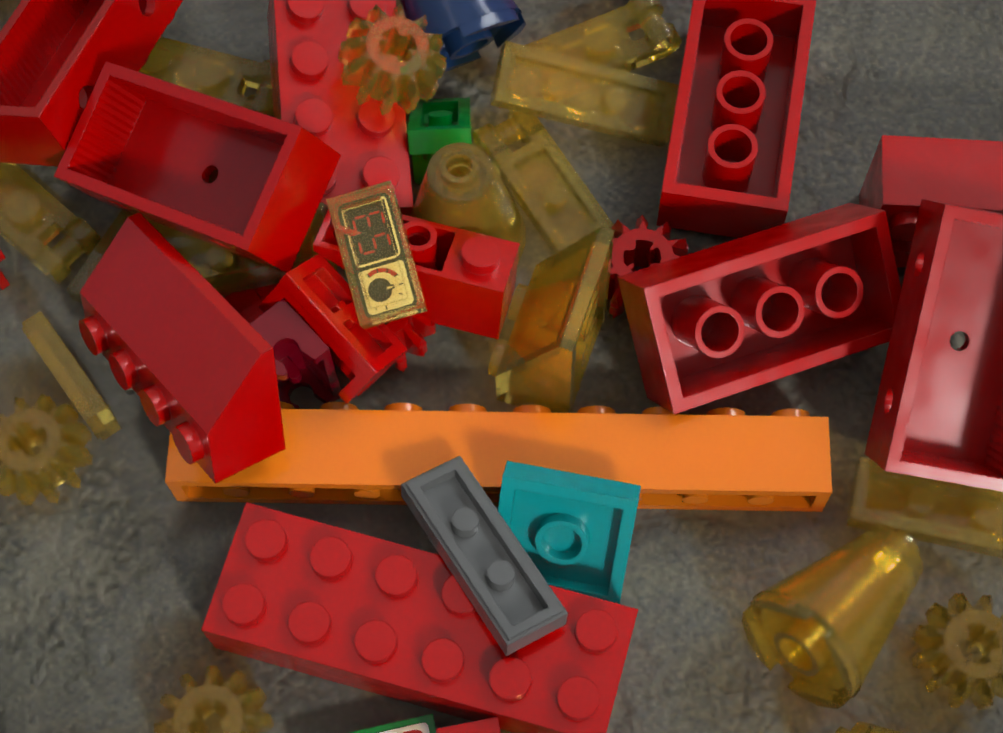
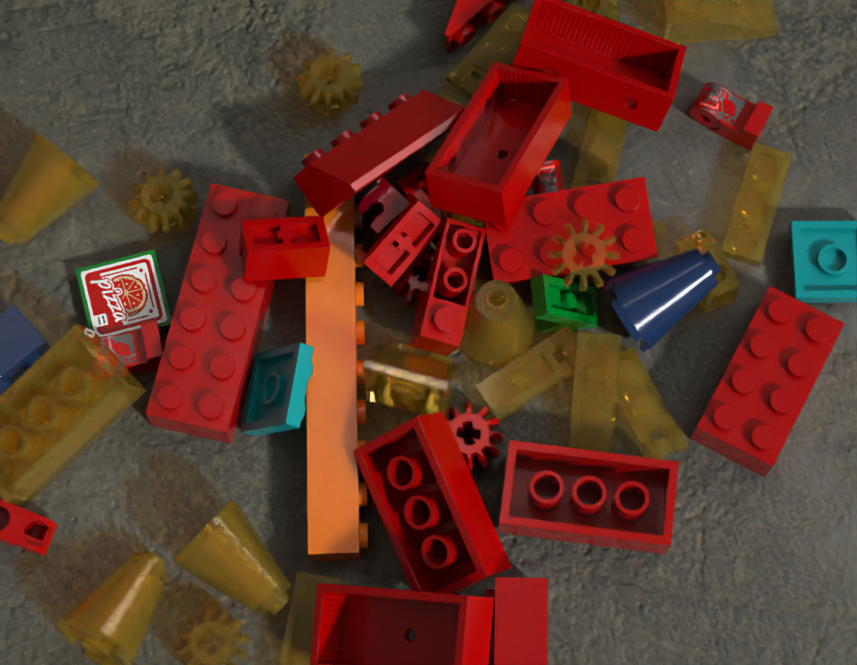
camera: 85 degrees right, 5 degrees up
(70, 376) = (379, 94): clear yellow tile -> none
(336, 498) = (283, 248): none -> red hinge
(376, 255) = (437, 254): clear yellow tile -> none
(484, 555) = (255, 336): dark grey tile -> none

